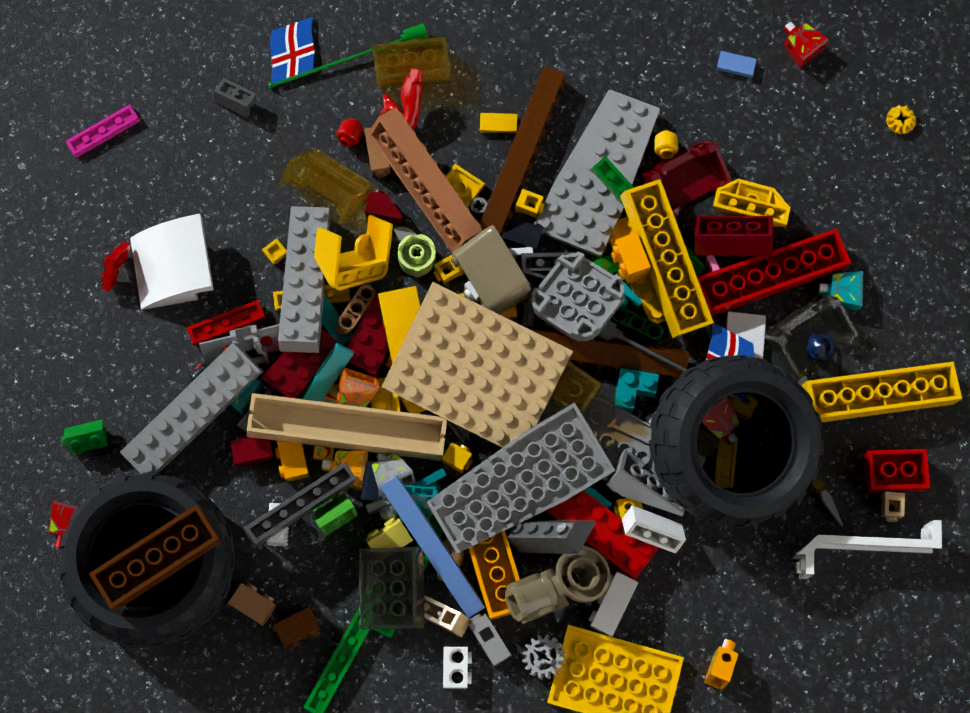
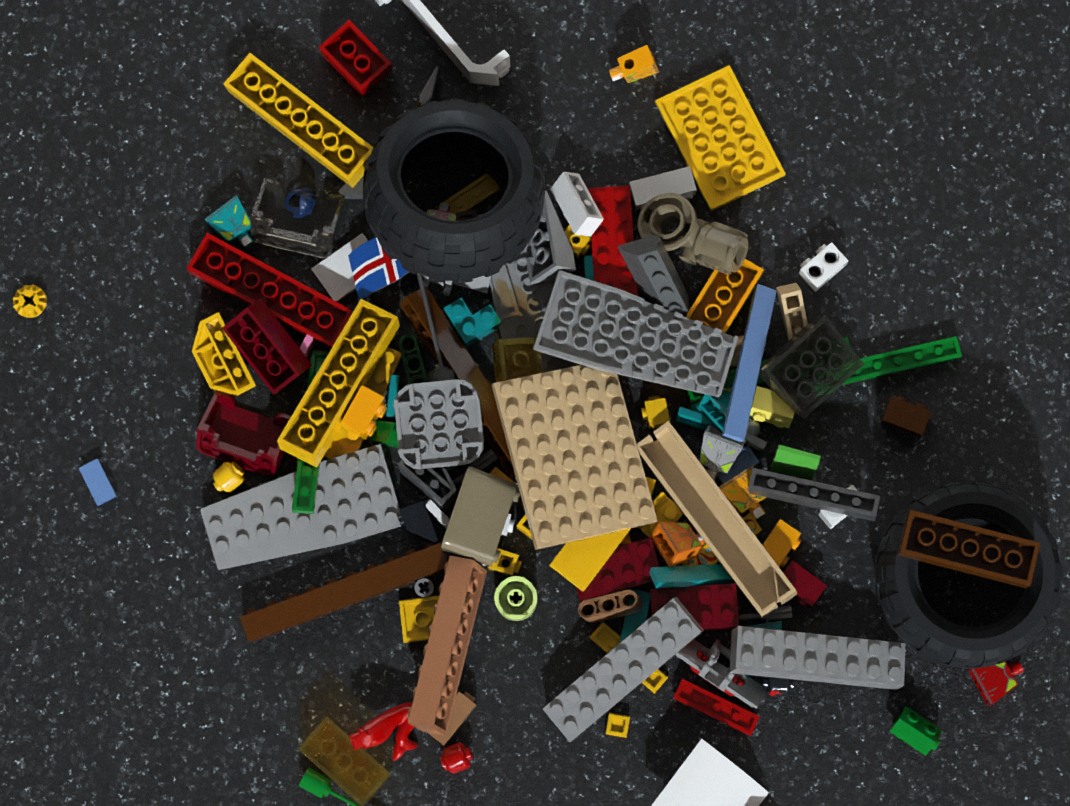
camera: 125 degrees left, 5 degrees up
(253, 604) = (920, 468): medium nougat brick -> none
(329, 179) = (512, 731): clear yellow windscreen -> none
(356, 267) = (566, 637): yellow windscreen -> none
(382, 207) = (499, 669): dark red slope -> none
(402, 232) = (505, 627): light grey tile -> none
(489, 639) = (778, 260): light grey brick -> none
(498, 123) = (332, 639): yellow tile -> none
(527, 198) = (377, 540): yellow brick -> none
(539, 663) = (744, 207): light grey gear -> none
(803, 42) = (28, 440): red torso -> none
(895, 499) = (378, 39): tan brick -> none

